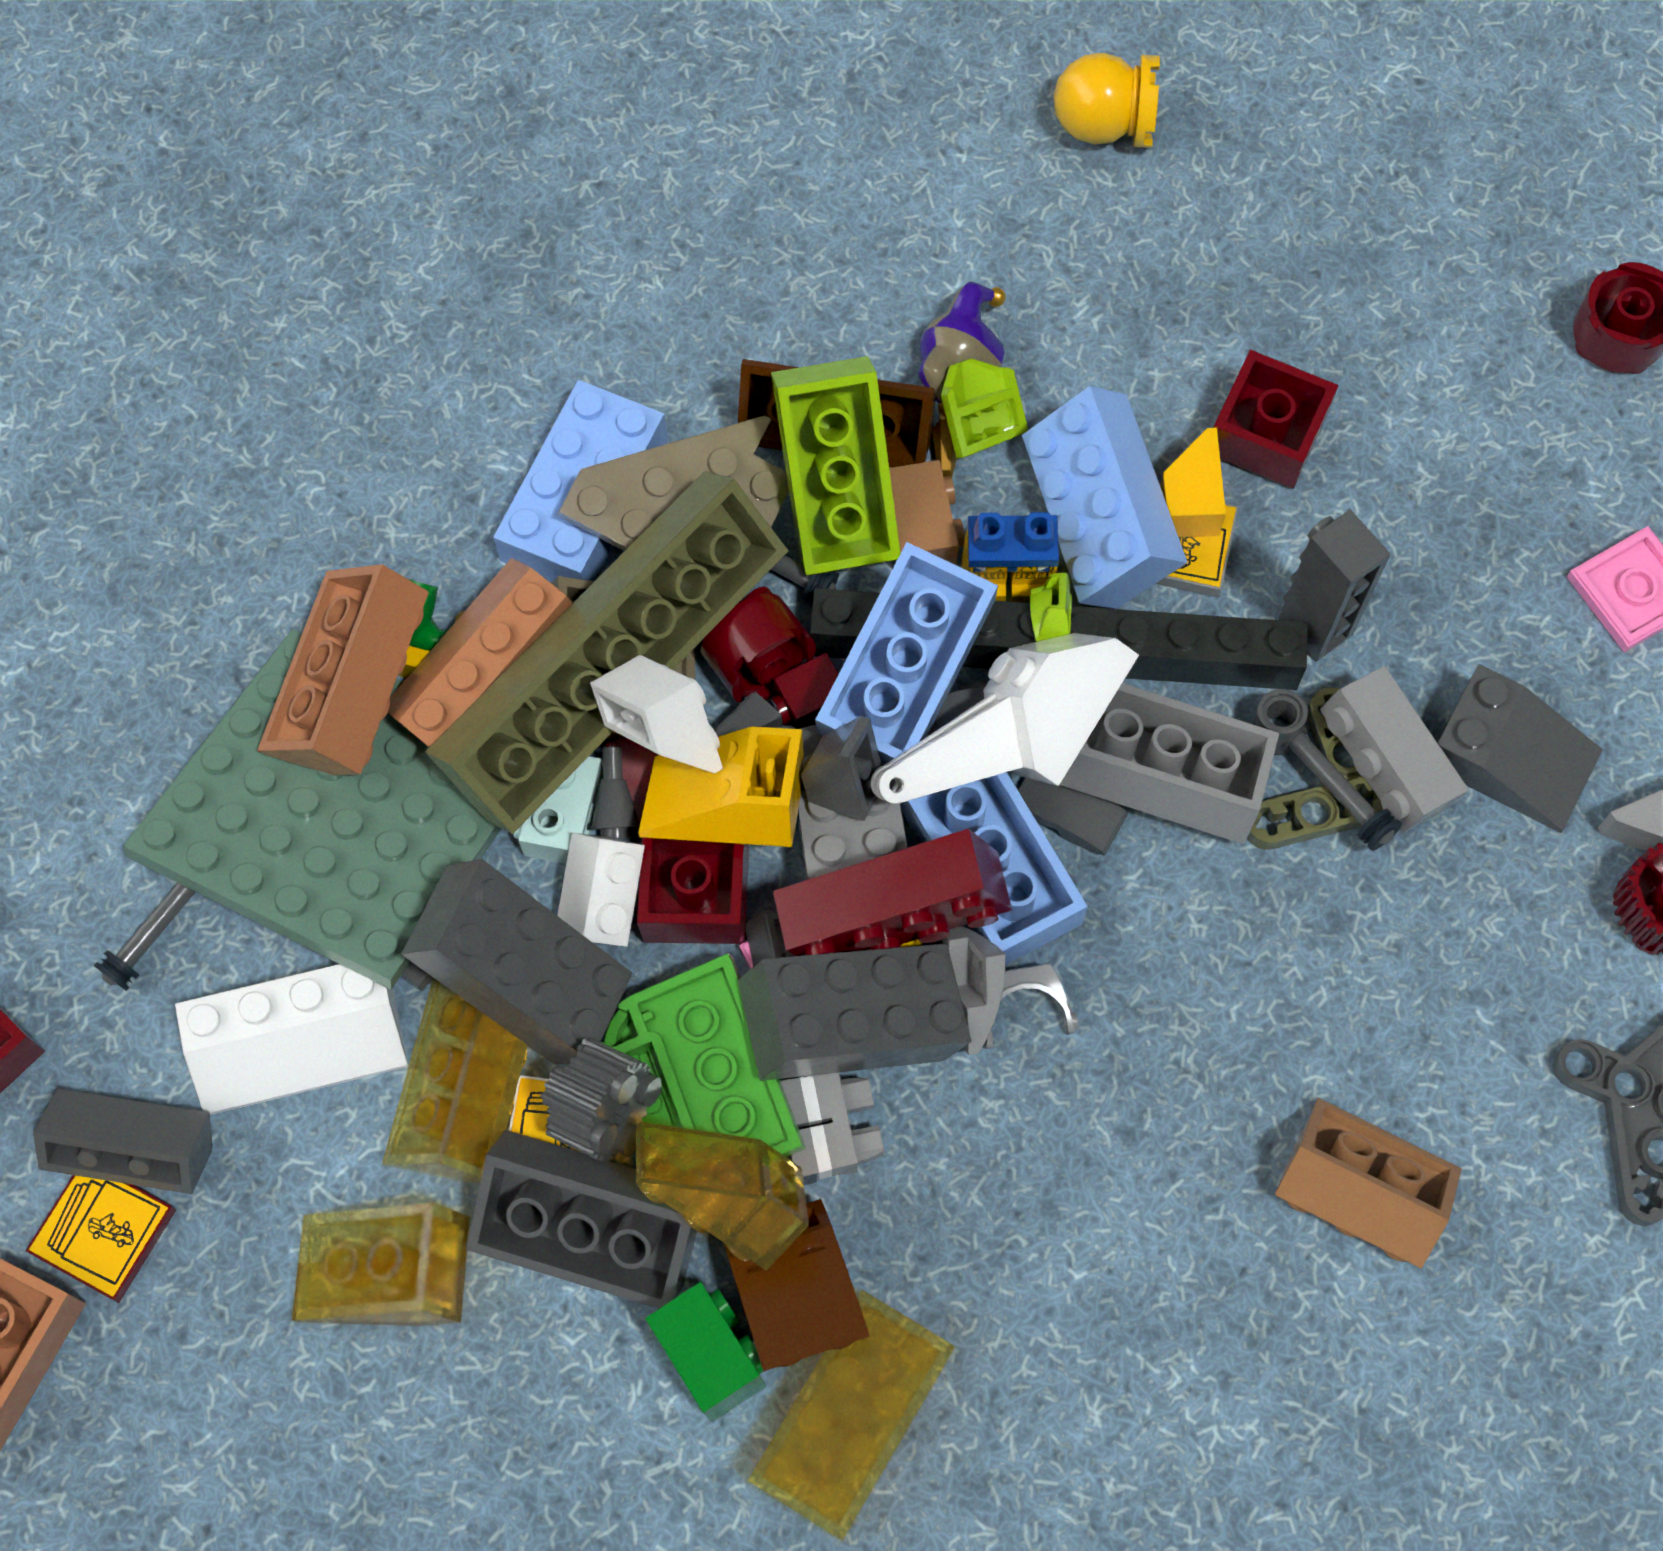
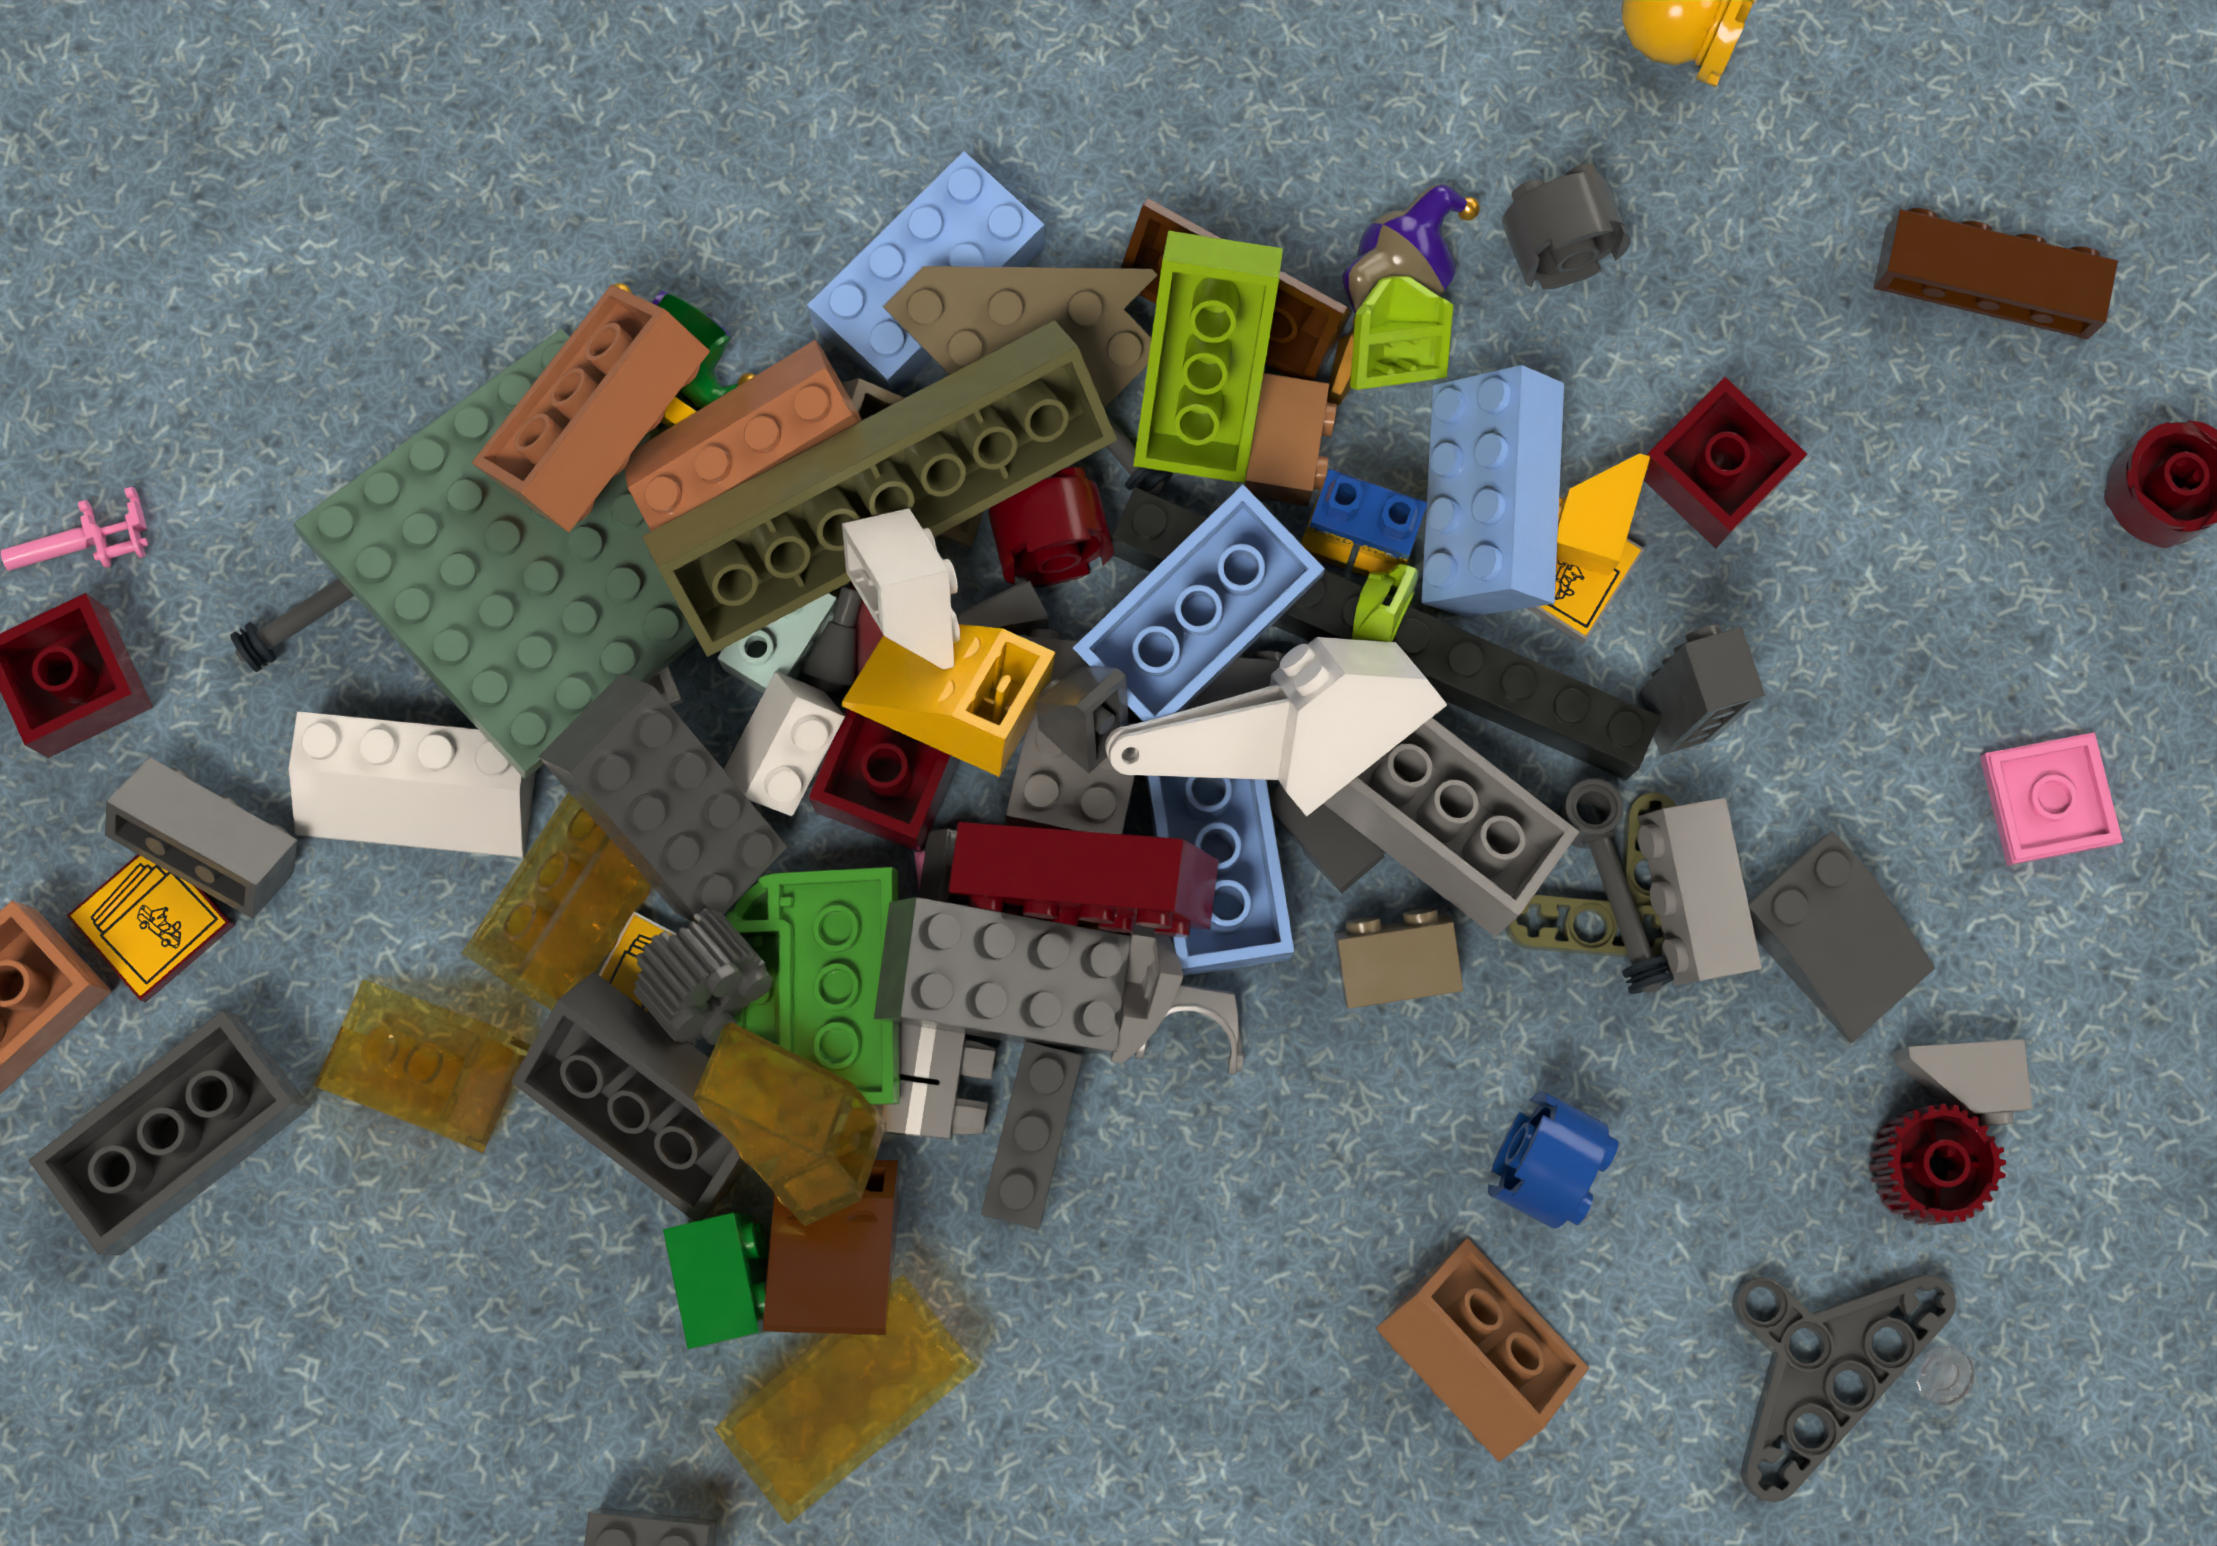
camera: 15 degrees right, 10 degrees up
(178, 1403) = (169, 1134): none -> dark grey brick
(803, 691) = (1084, 598): dark red brick -> none
(926, 1140) = (1031, 1135): none -> dark grey brick
(1078, 284) = (1564, 227): none -> dark grey brick
(1173, 888) = (1398, 958): none -> dark tan brick
(1364, 1004) = (1552, 1161): none -> blue brick
(1423, 213) = (1996, 273): none -> reddish brown brick

